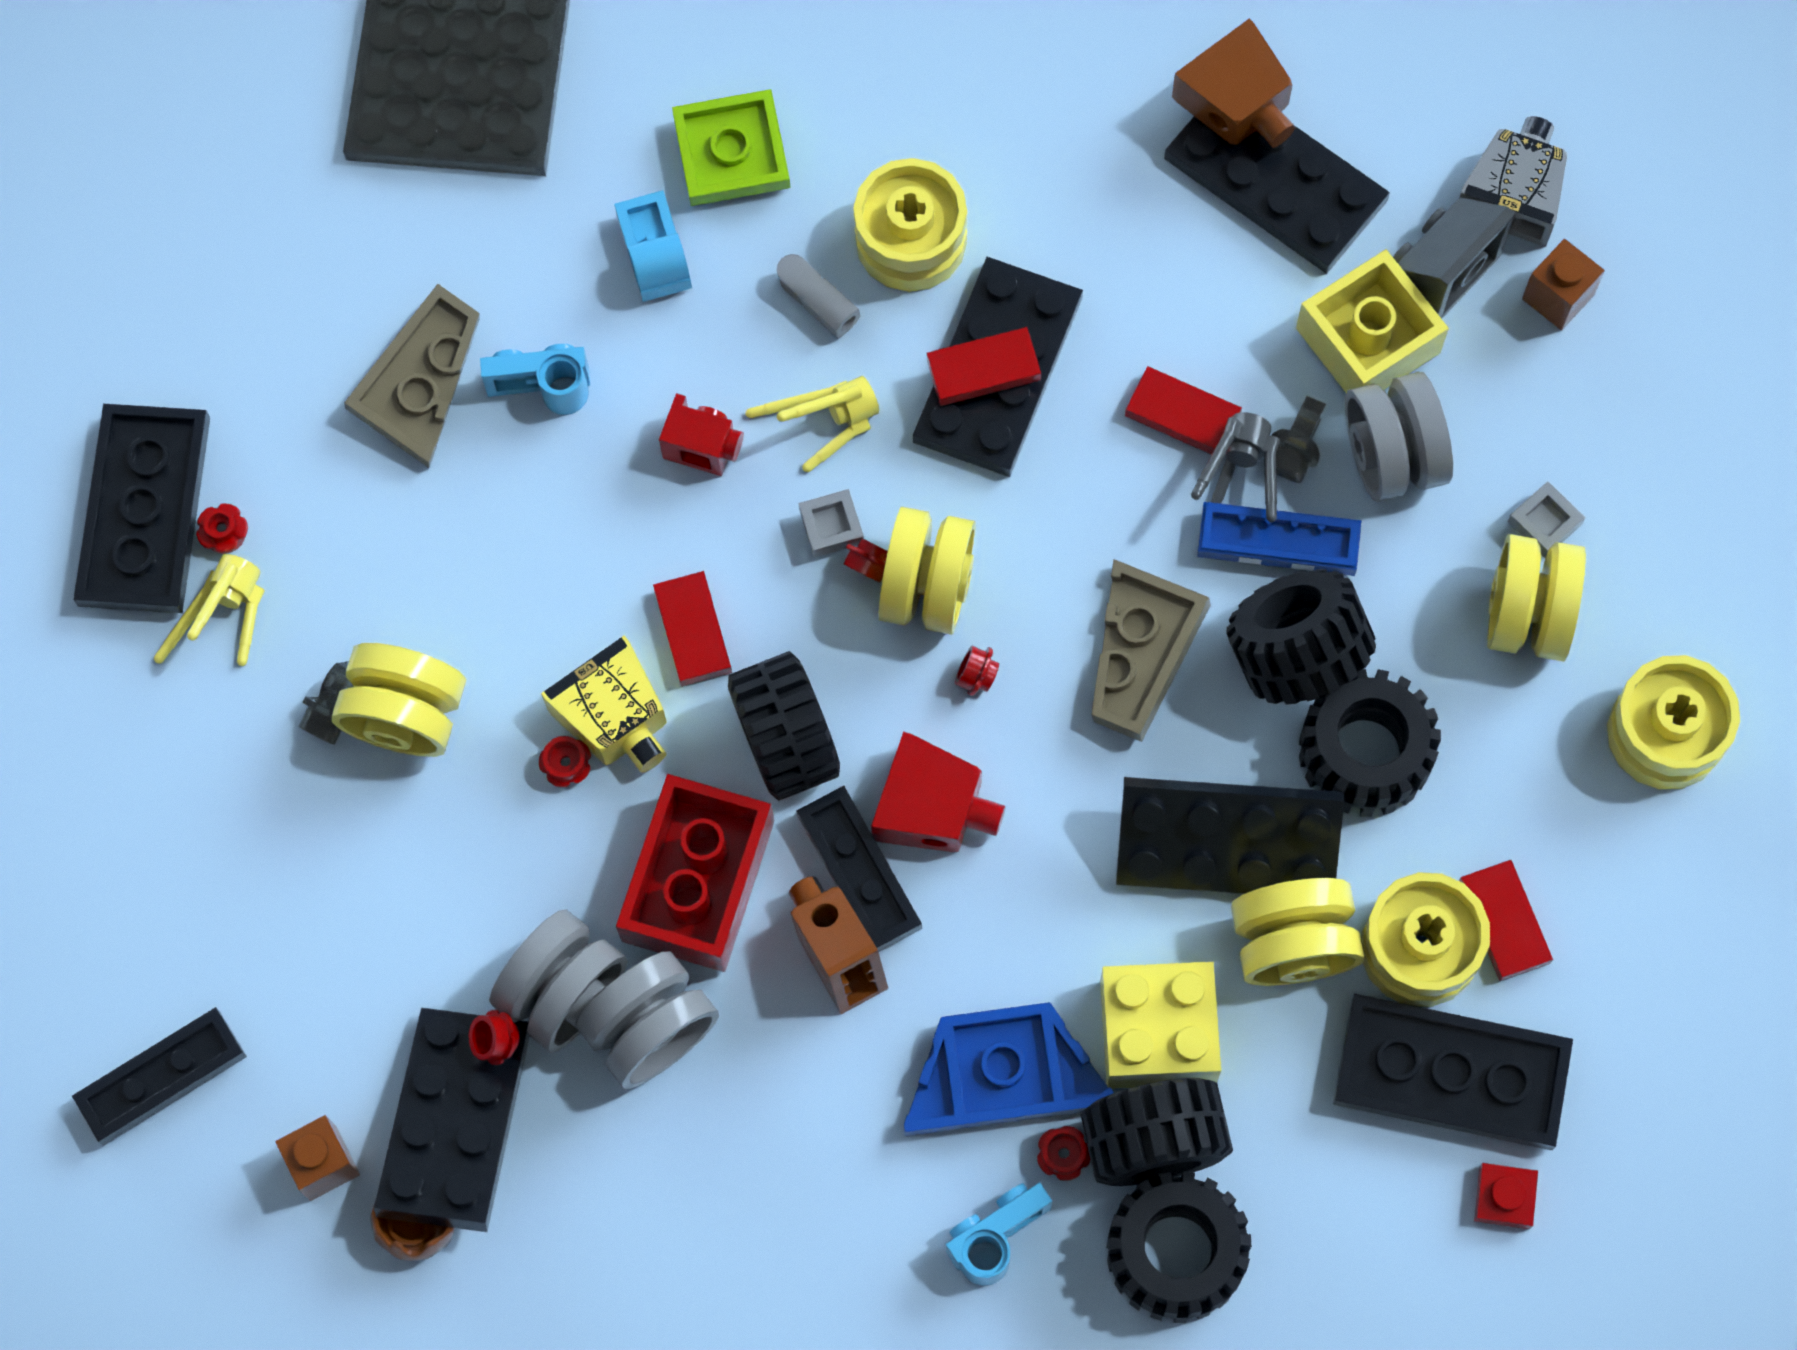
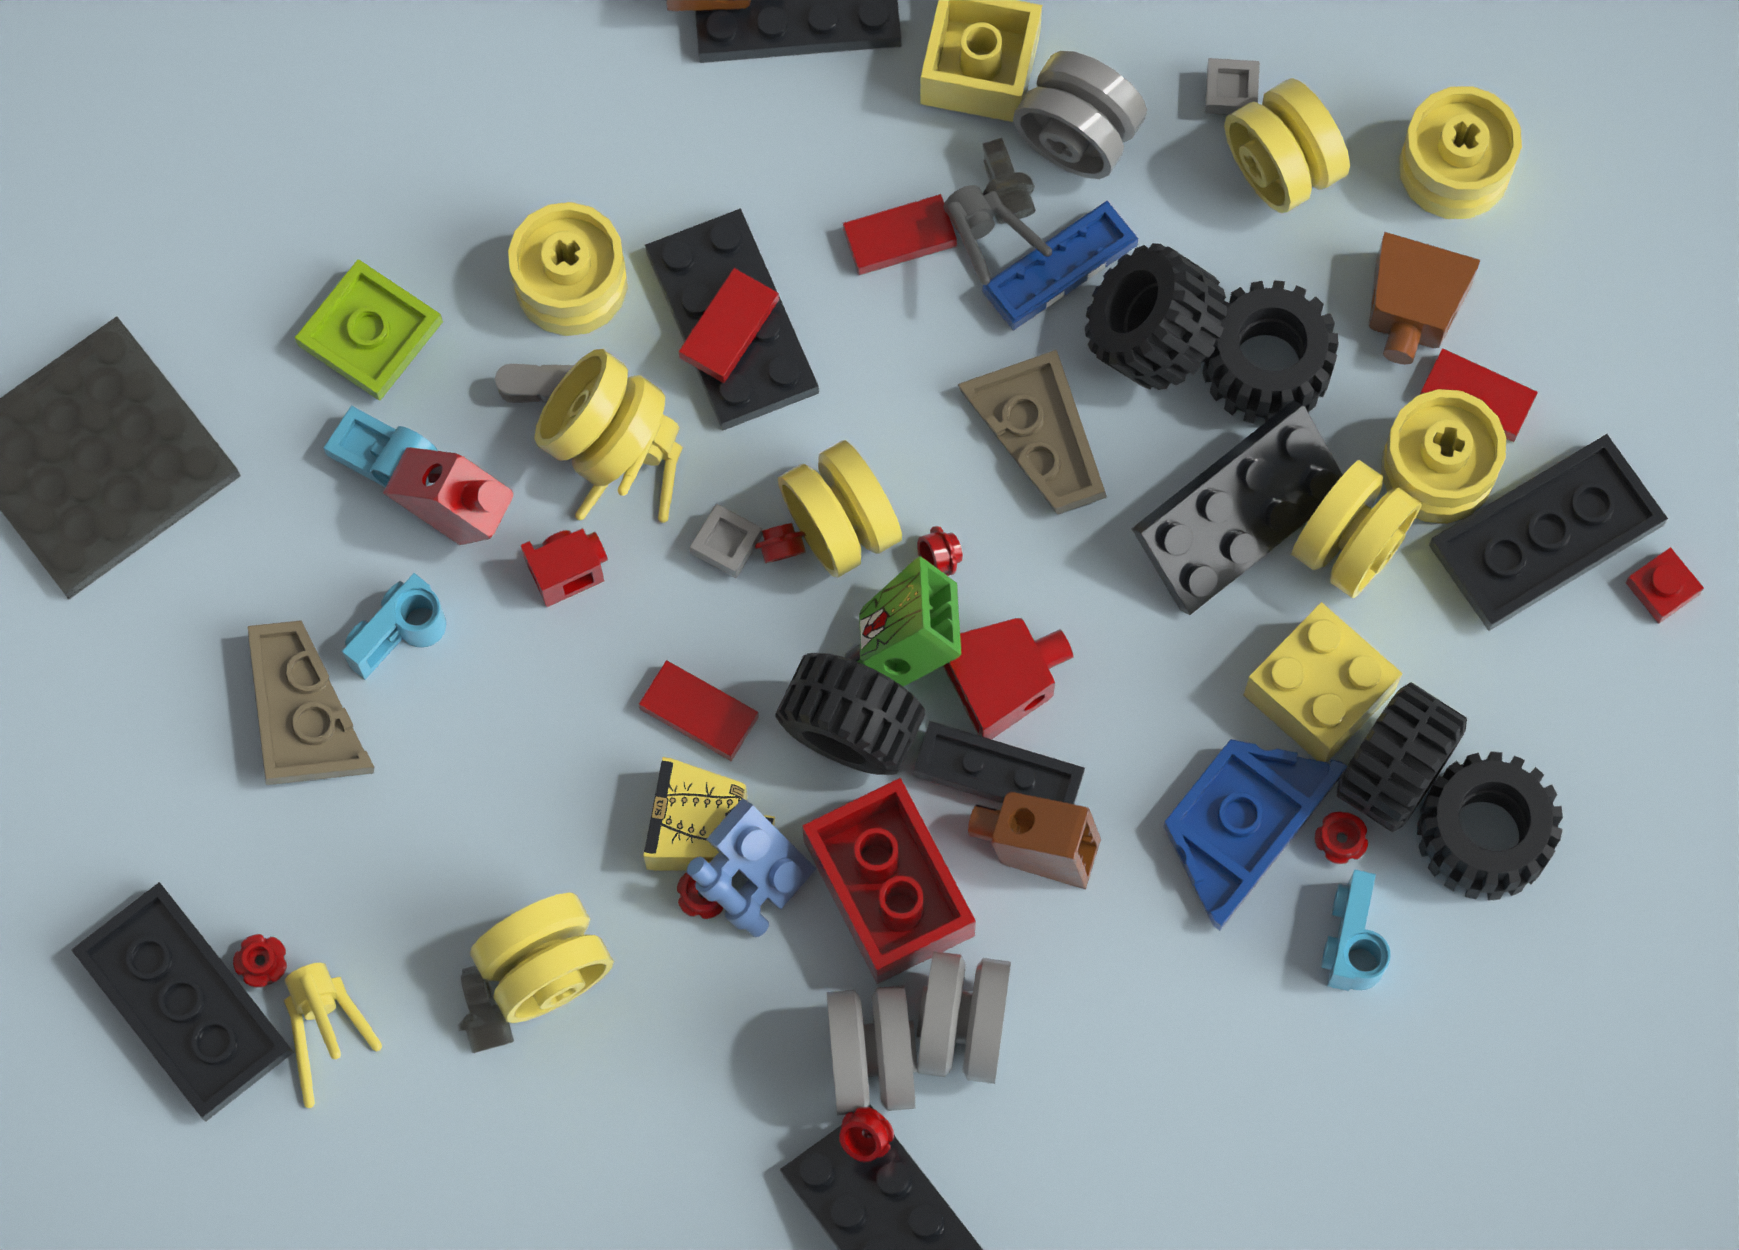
camera: 45 degrees left, 0 degrees up
(623, 770) = (762, 856): none -> medium blue plate
(660, 314) = (461, 502): none -> torso
(819, 350) = (600, 417): none -> light yellow wheel
(893, 701) = (910, 624): none -> bright green torso
(1531, 802) = (1417, 294): none -> dark orange torso

